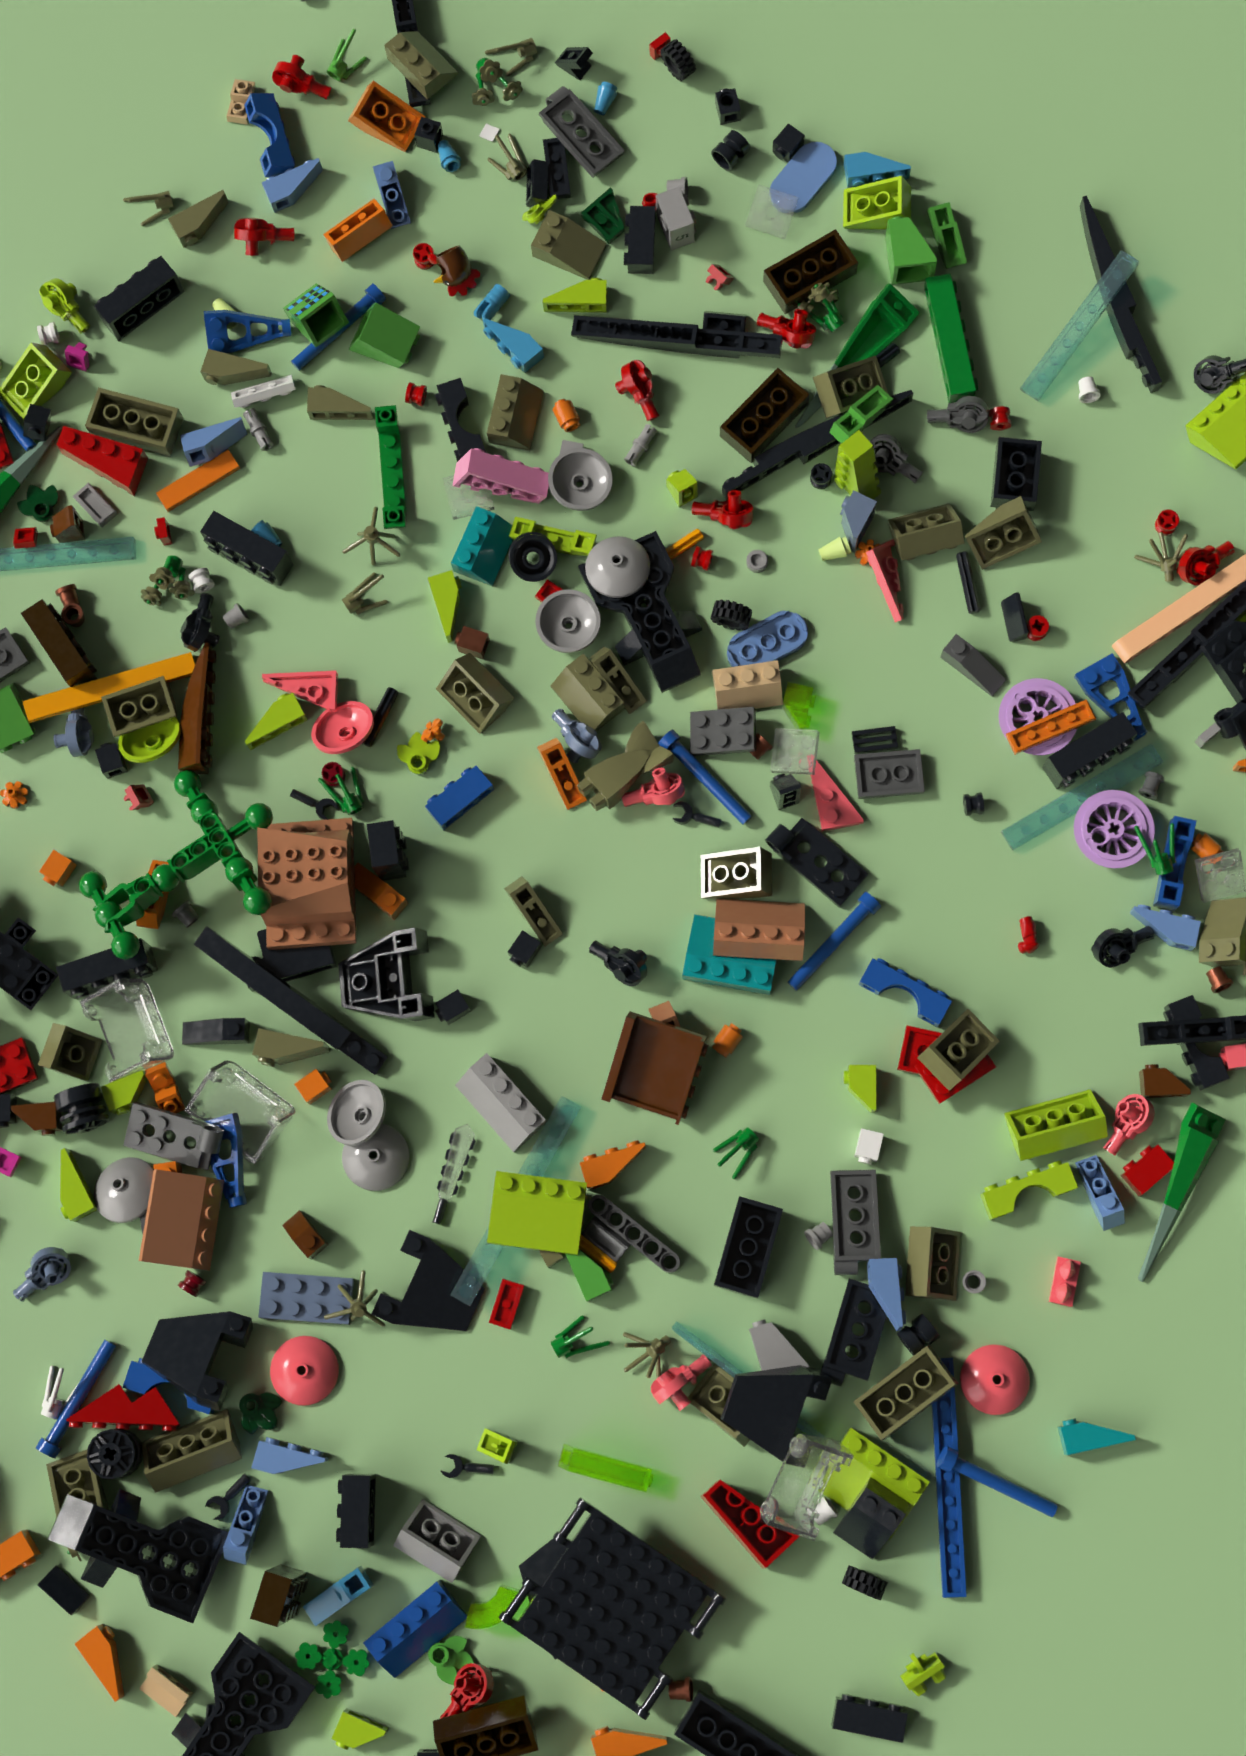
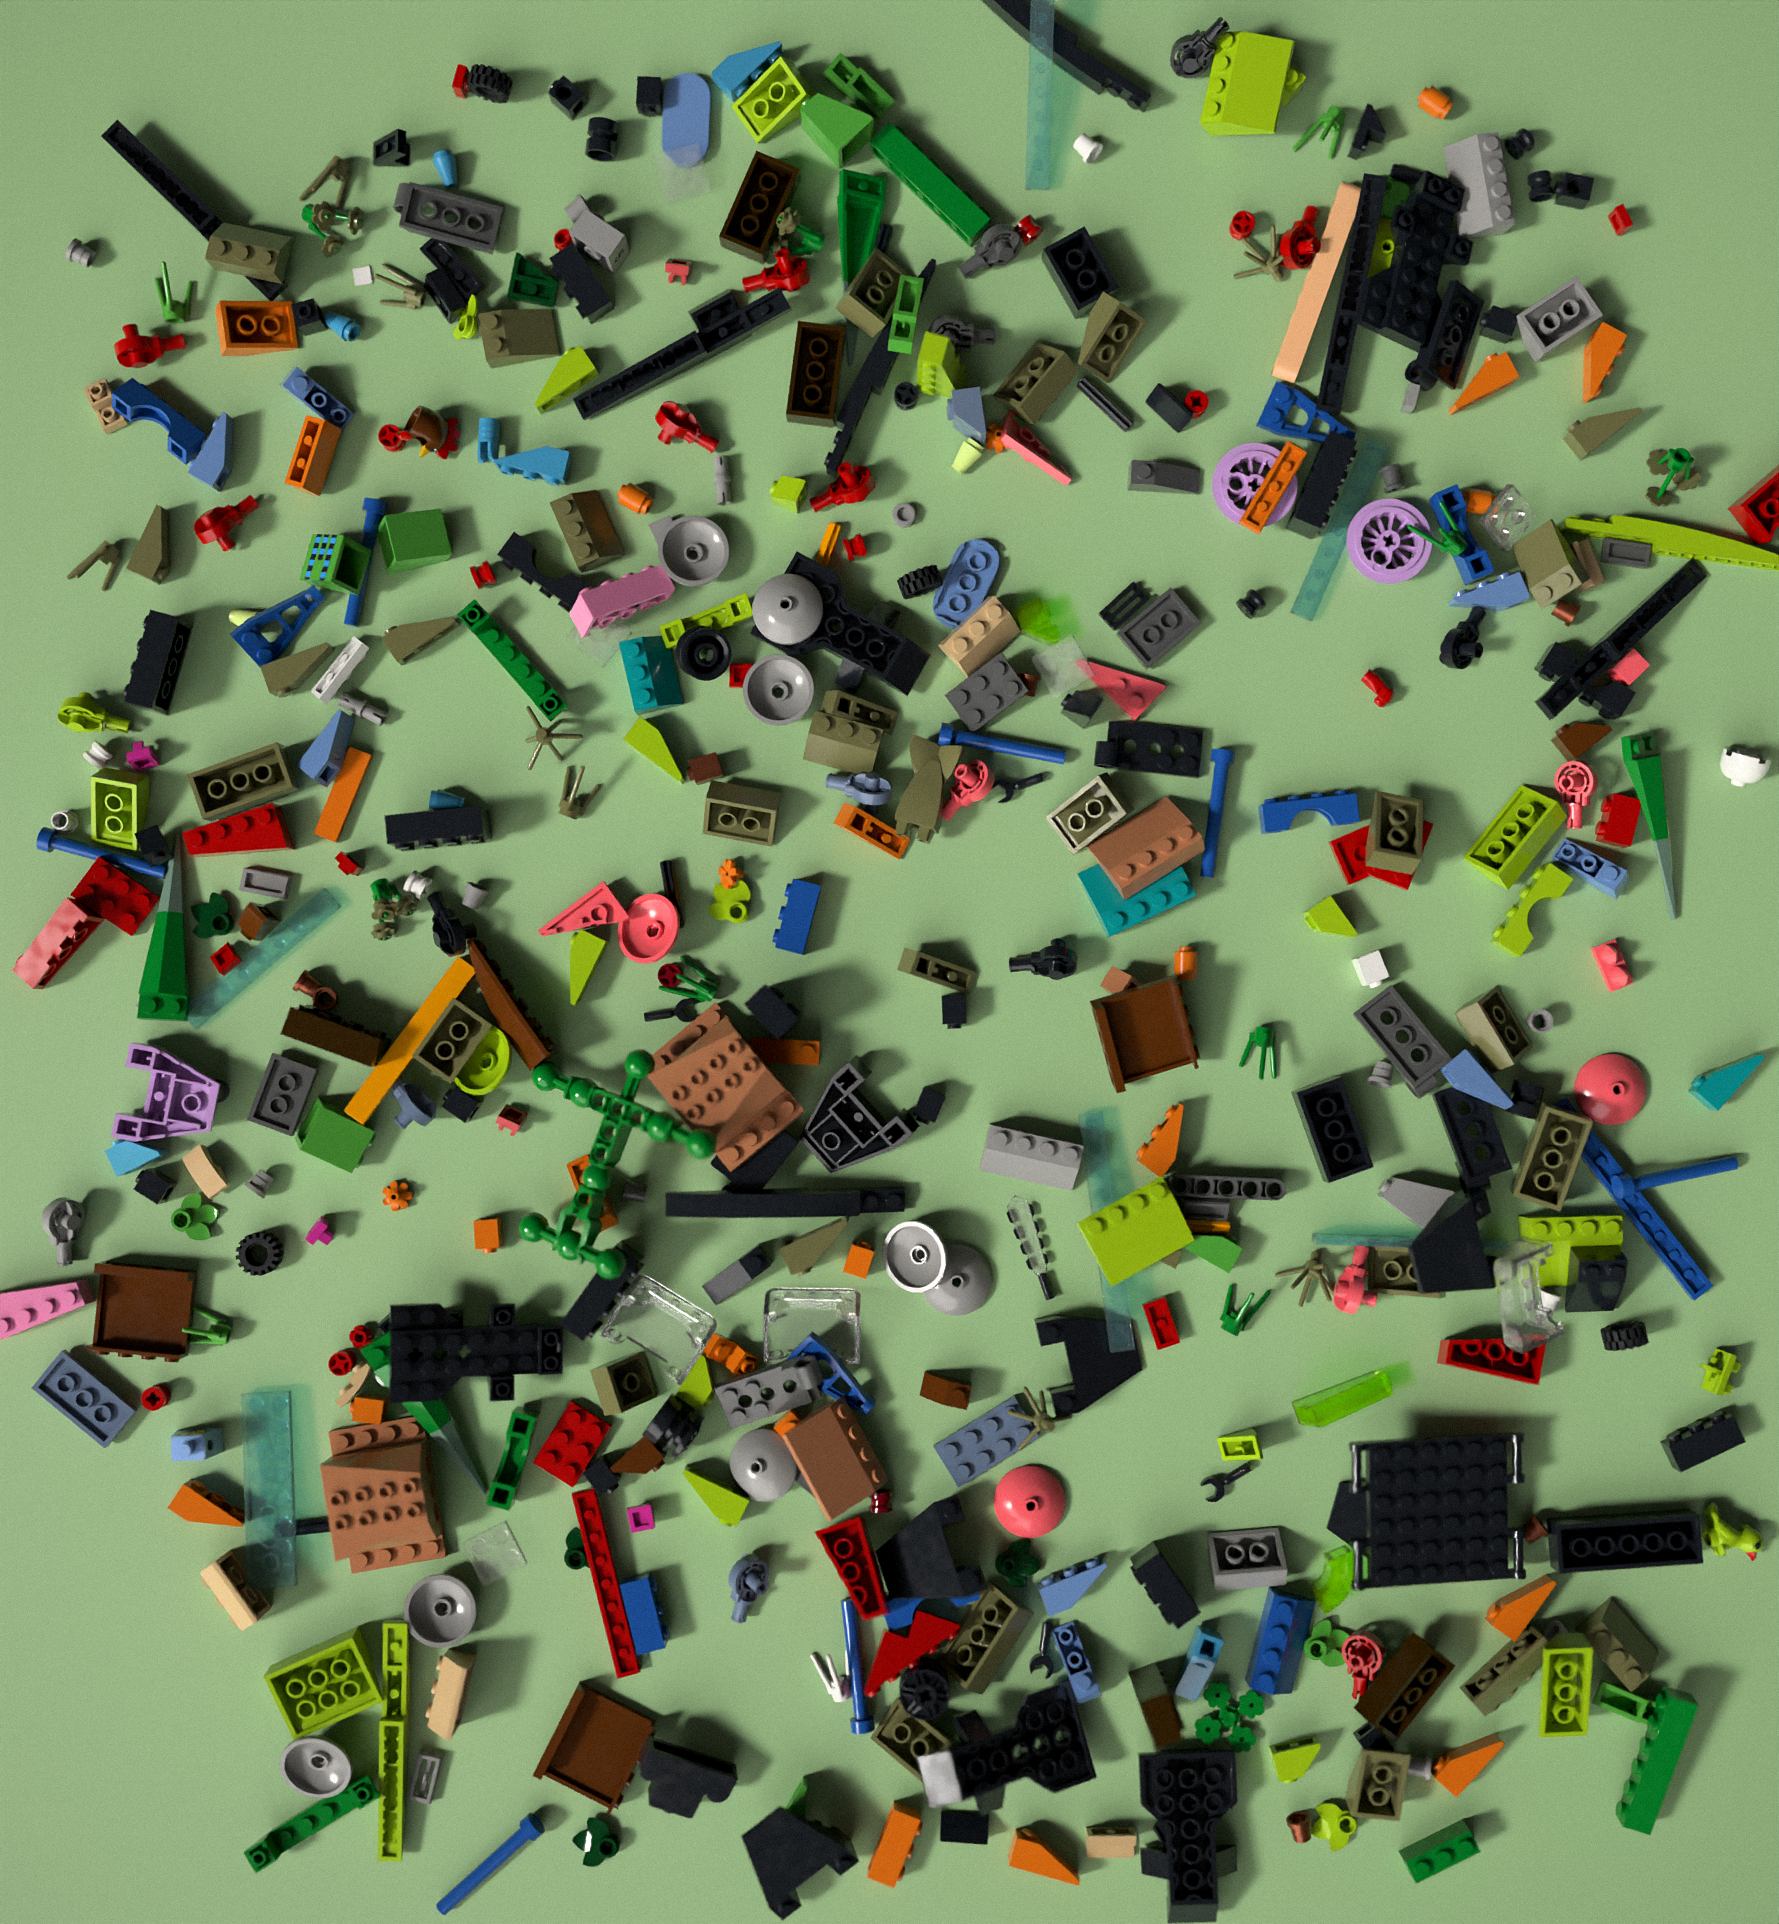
camera: 45 degrees left, 10 degrees up
(136, 1315) = (856, 1564): none -> red wedge

